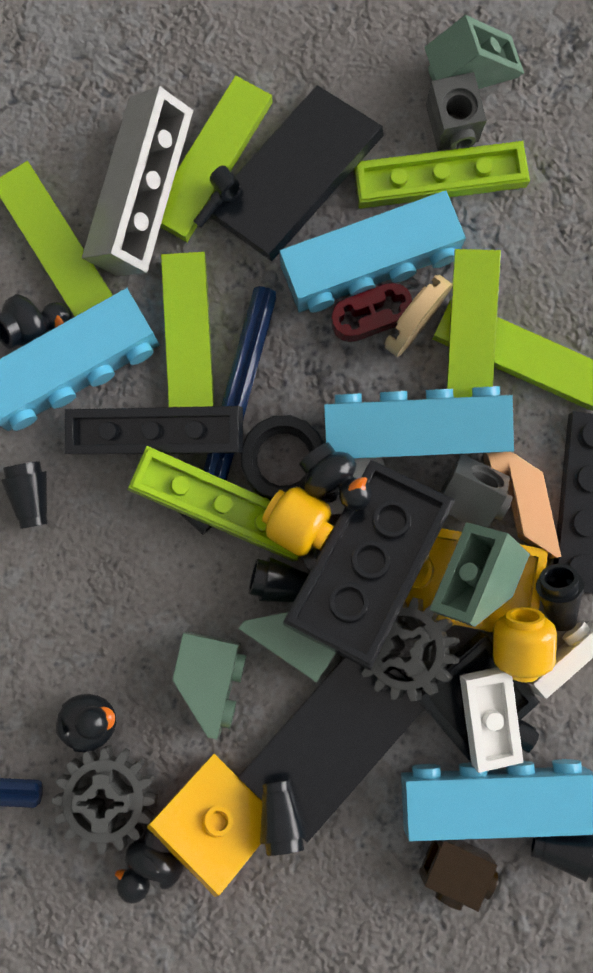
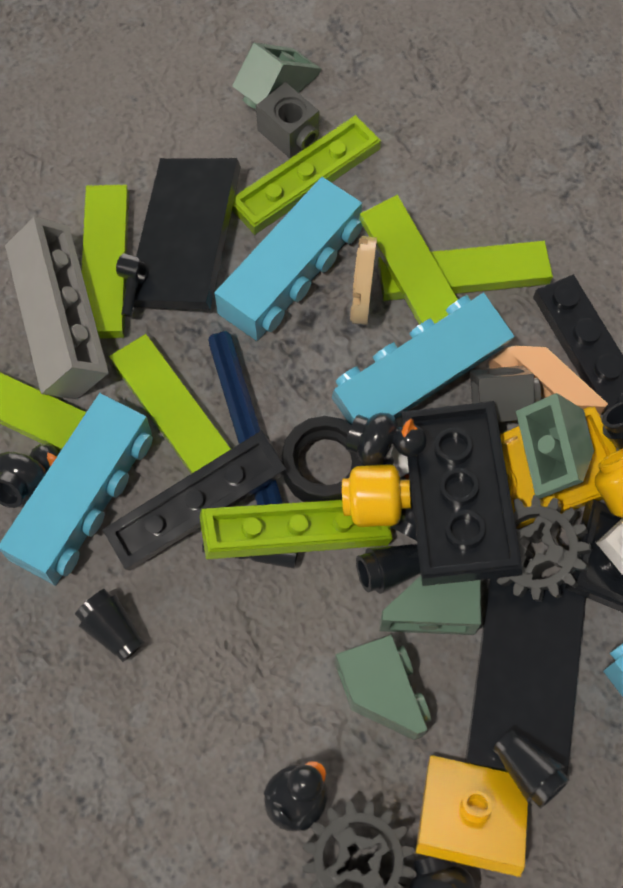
camera: 35 degrees left, 15 degrees down
(367, 303) = (326, 311): dark red beam -> none

